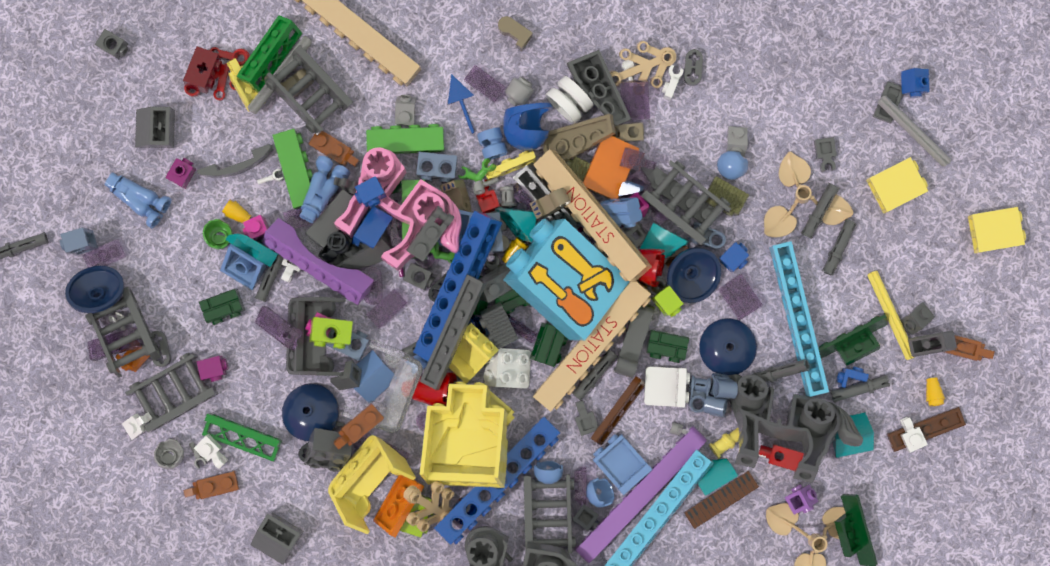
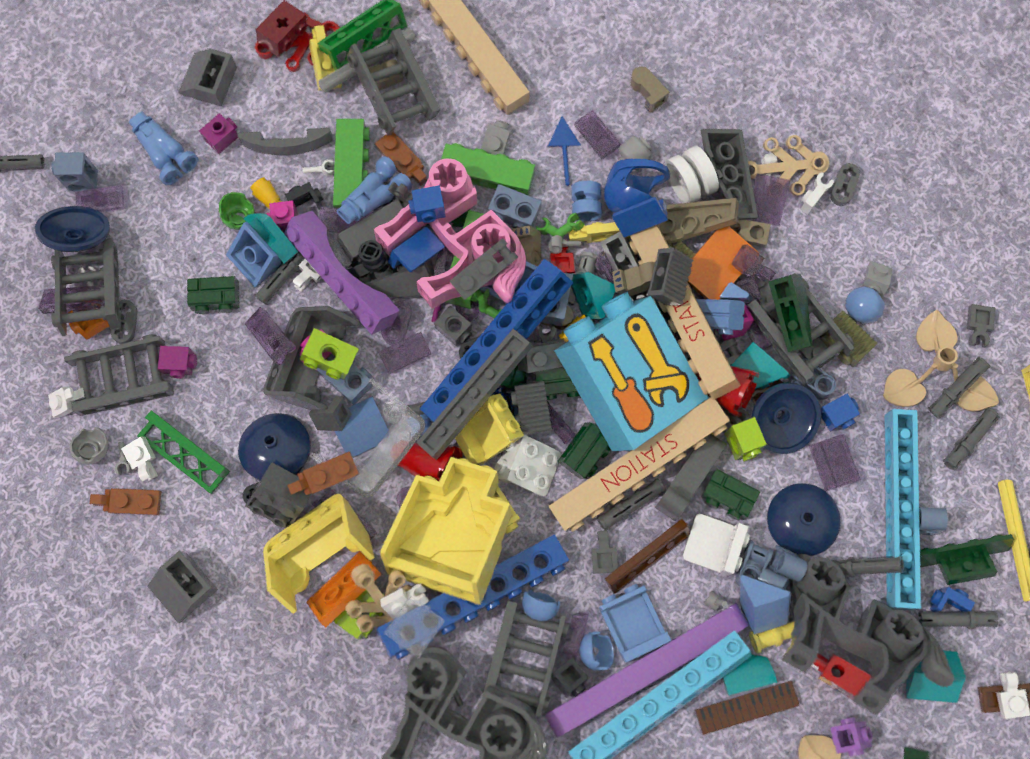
camera: 15 degrees right, 10 degrees down
(263, 205) = (303, 194): none -> black bracket
(446, 502) = (394, 602): none -> white plate
(461, 518) = (414, 626): none -> clear piece
(540, 151) = (641, 216): none -> blue panel
(575, 198) = (670, 276): none -> dark grey brick
(676, 193) = (792, 311): none -> dark green slope
(713, 423) = (763, 604): none -> medium blue slope
(822, 321) = (932, 520): none -> sand blue piece

